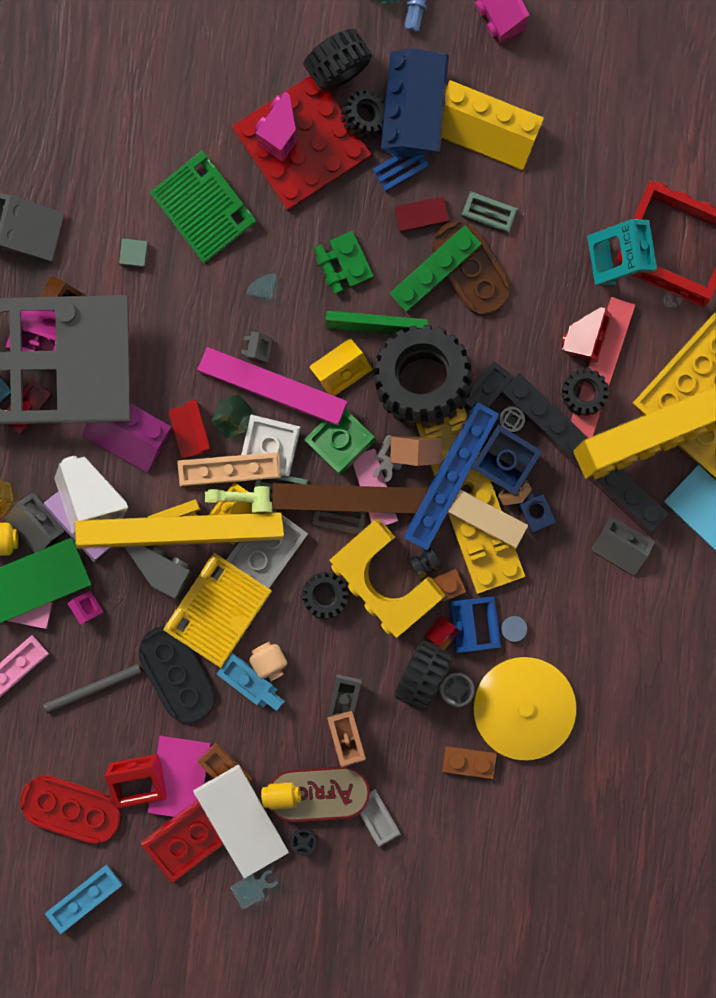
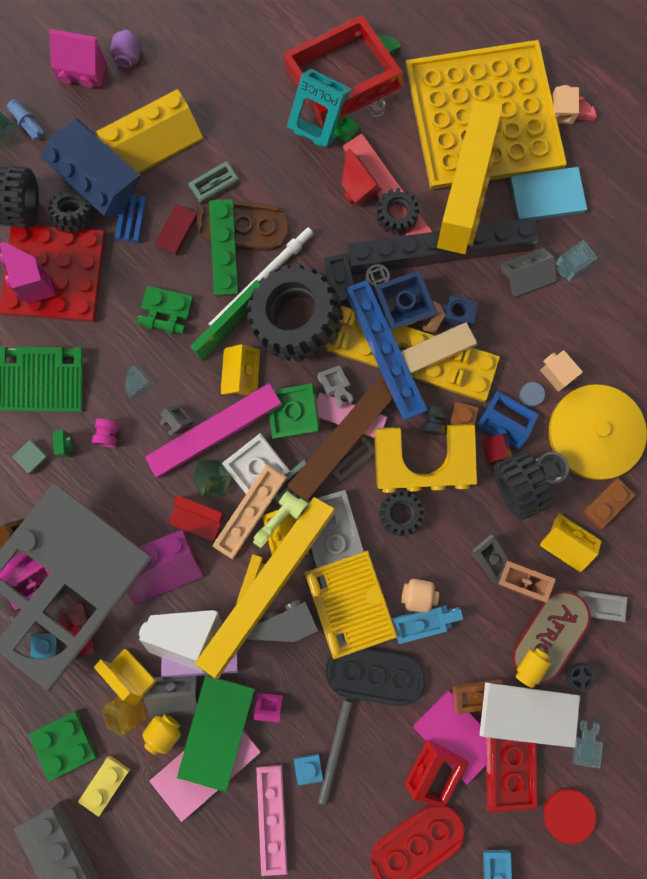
camera: 50 degrees left, 5 degrees down
(22, 475) = (126, 677): none -> yellow panel
(62, 677) = (308, 769): none -> dark azure plate
(165, 271) = (62, 443): none -> green plate
(186, 913) = (569, 816): none -> red tile
(201, 299) = (105, 433): none -> dark pink wheel
(410, 754) = (571, 543): none -> yellow panel
(416, 450) = (346, 361): nougat slope -> none
(484, 326) = (293, 247): none -> white bar
(549, 37) = (125, 48): none -> medium lavender head
(553, 636) = (560, 370): none -> light nougat brick
(629, 288) = (346, 129): none -> green tile
(662, 578) = (575, 260): none -> clear light blue brick

